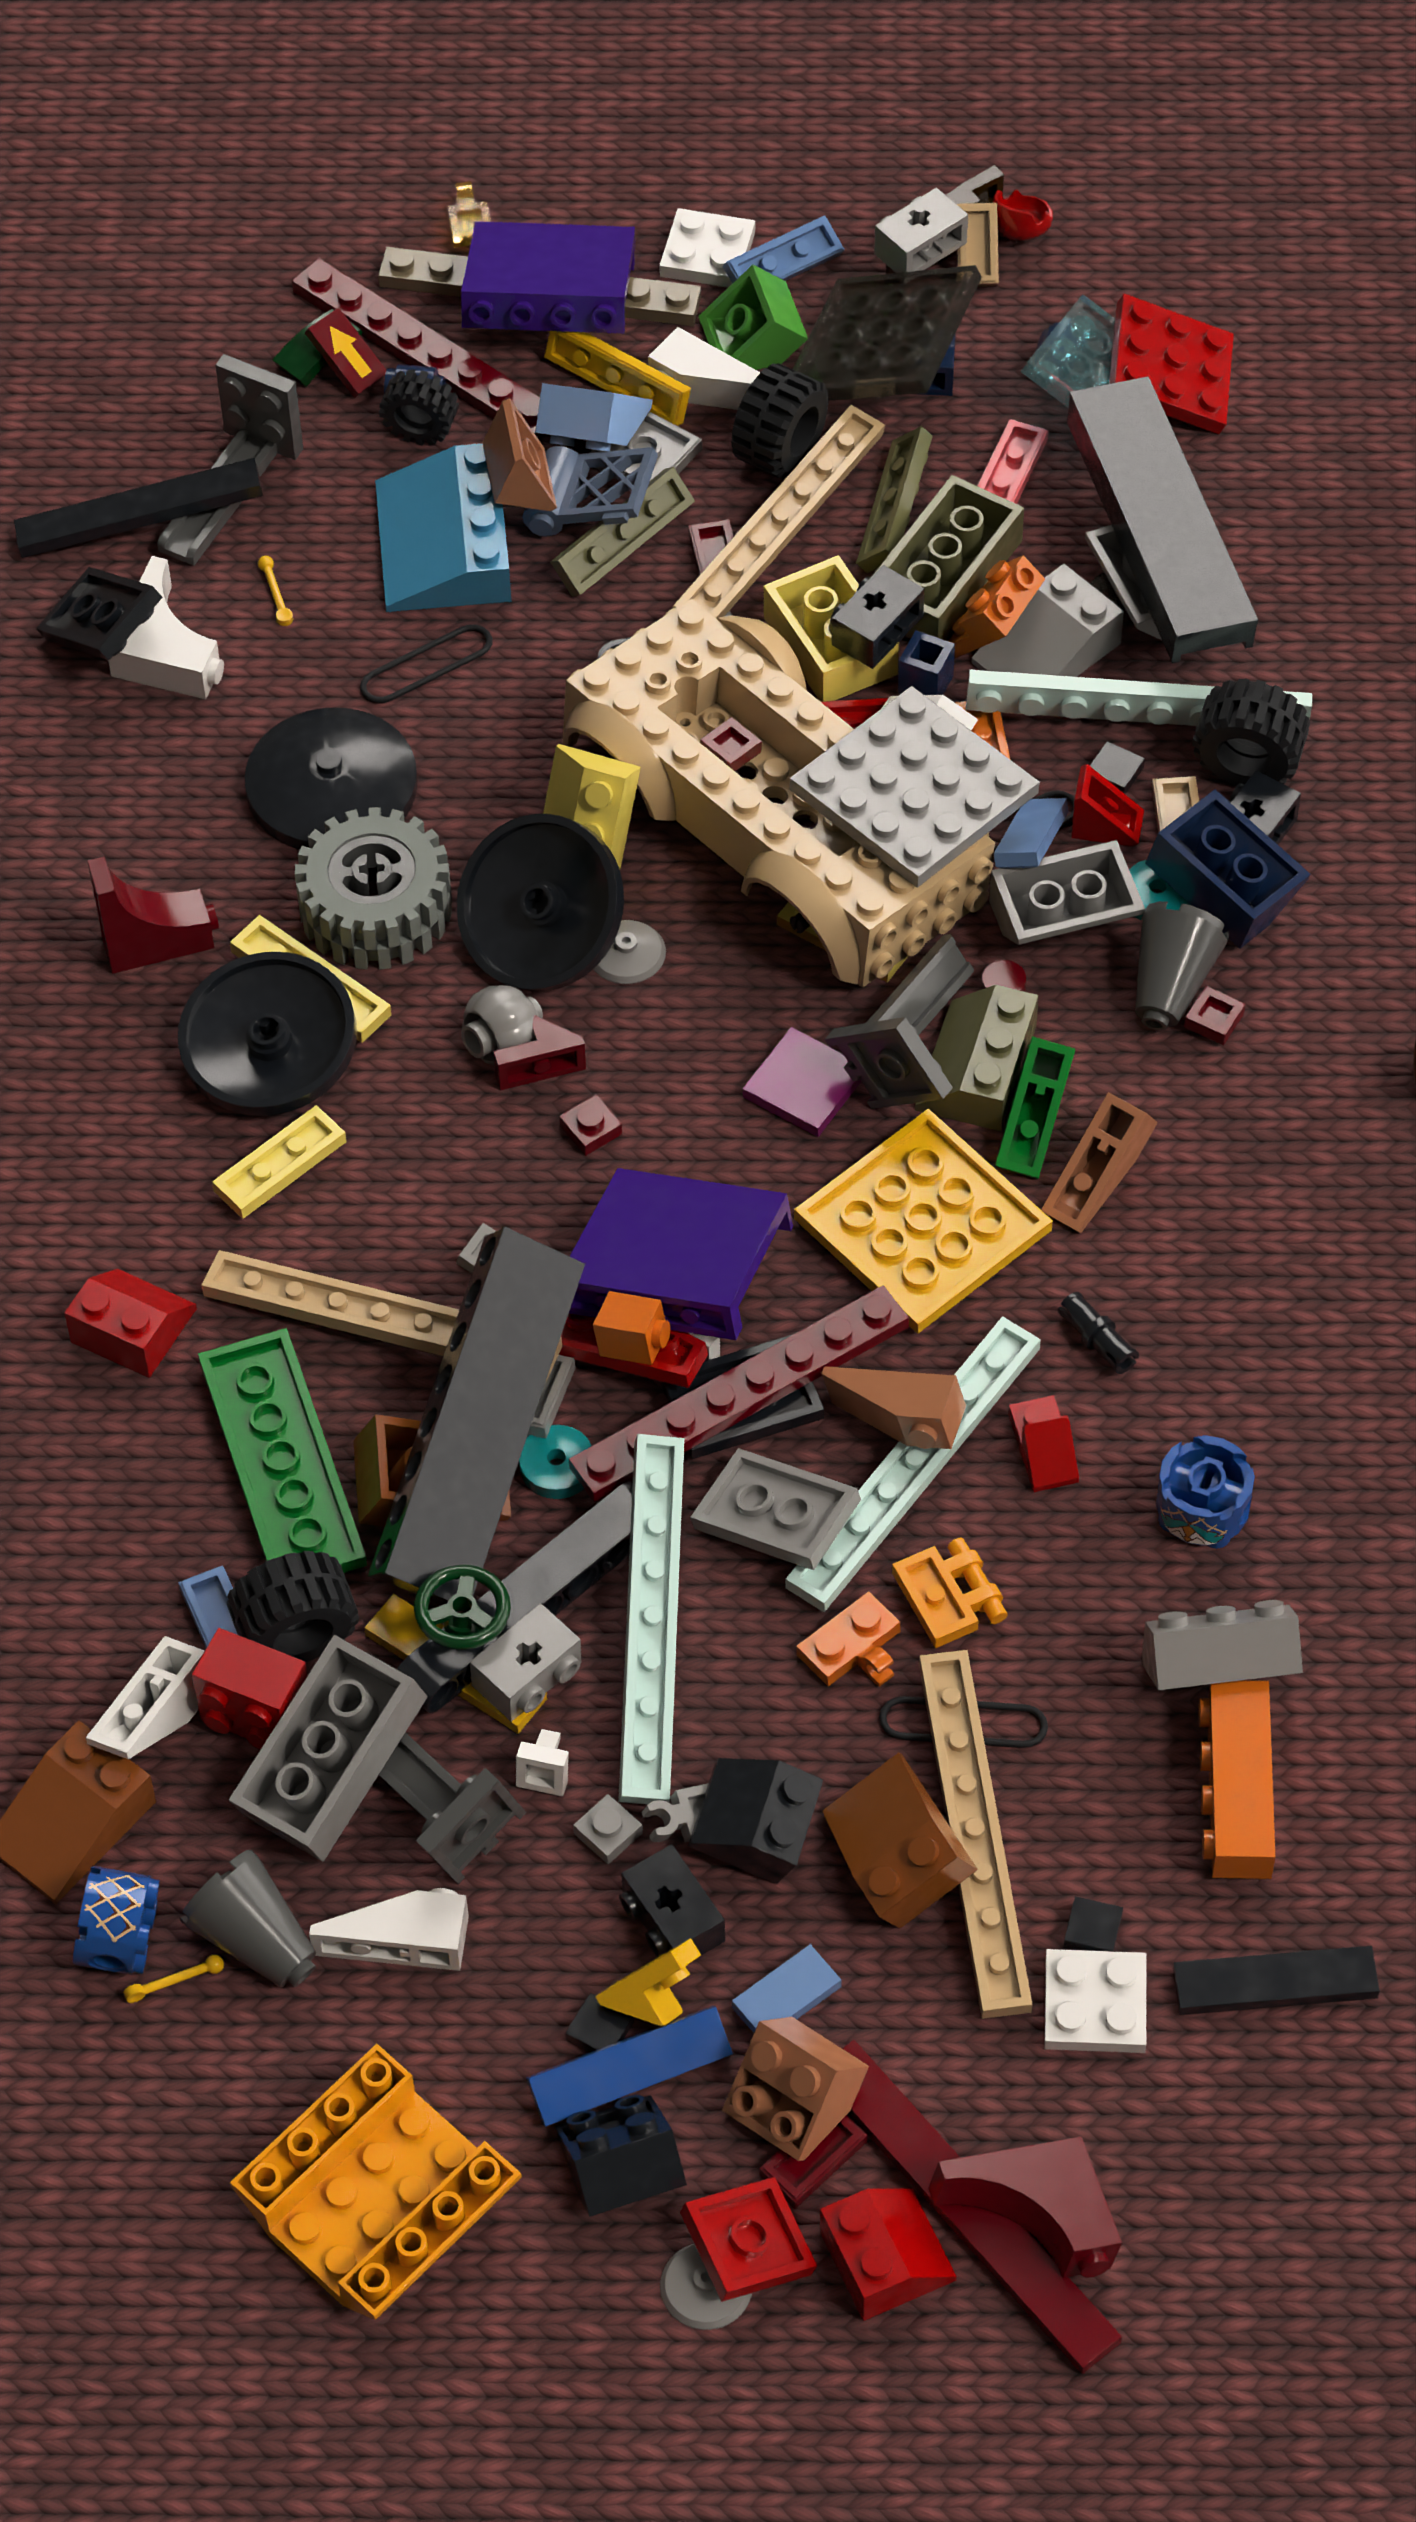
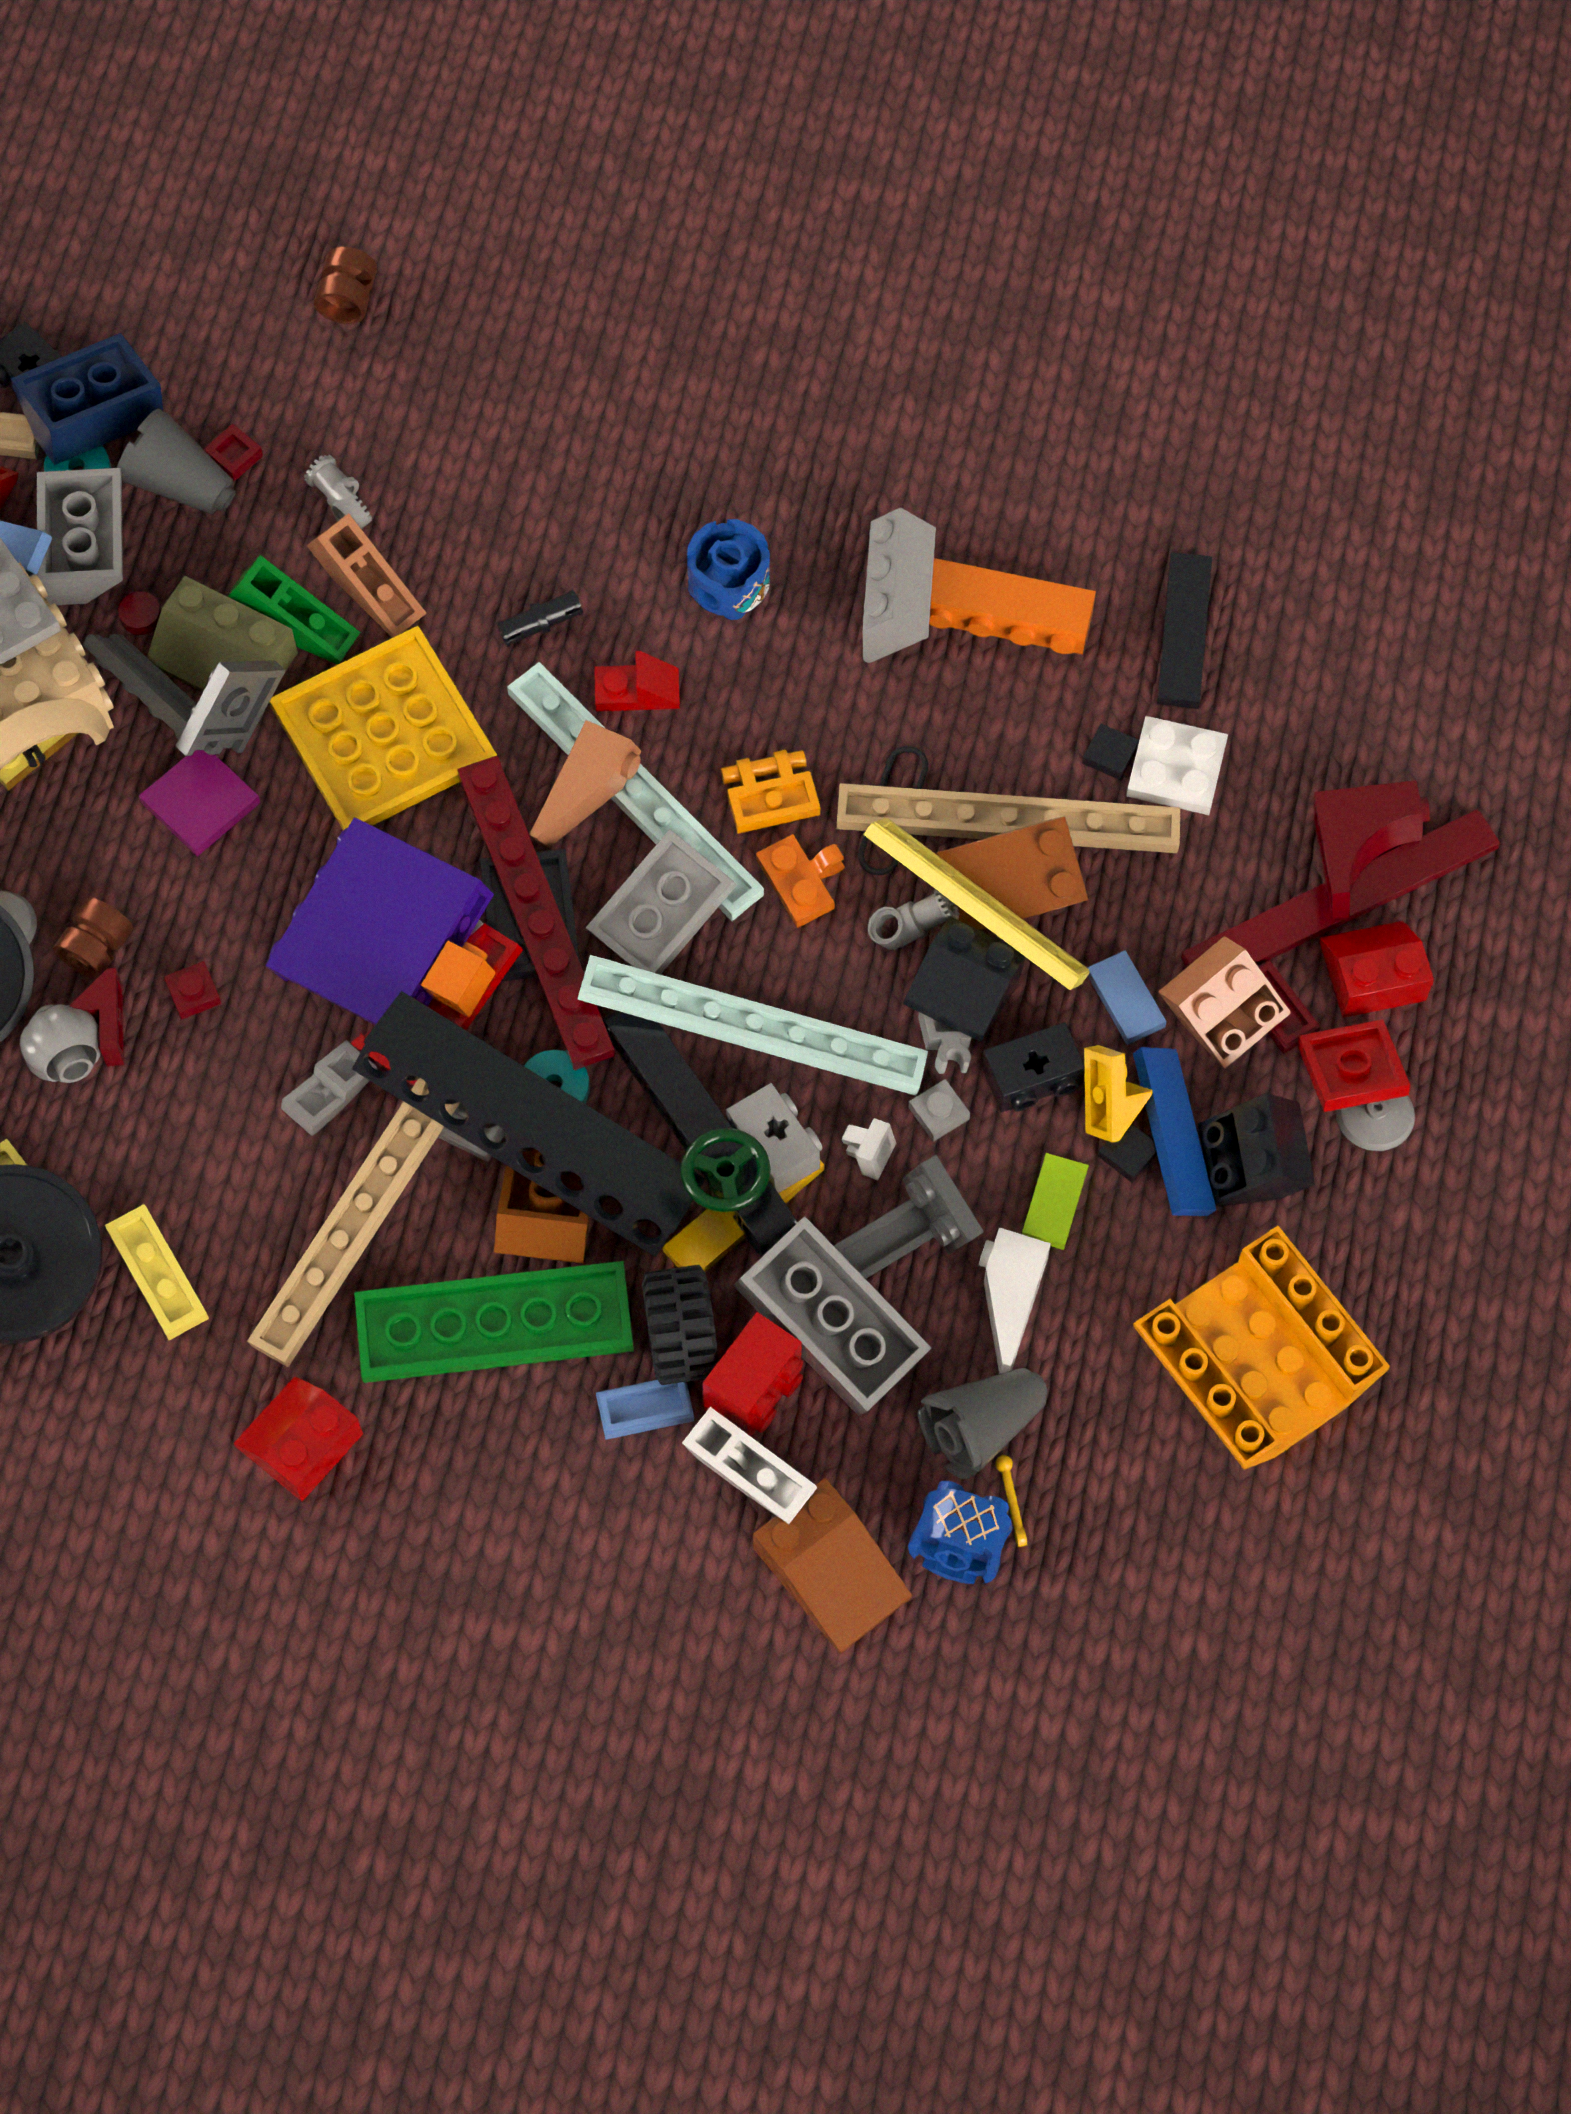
camera: 80 degrees left, 10 degrees up
(524, 1961) = (1055, 1200): none -> lime tile
(620, 1023) = (95, 934): none -> copper wheel
(822, 1755) = (913, 920): none -> light grey connector
(842, 1803) = (977, 903): none -> light yellow tile
(1193, 1119) = (338, 489): none -> light grey connector

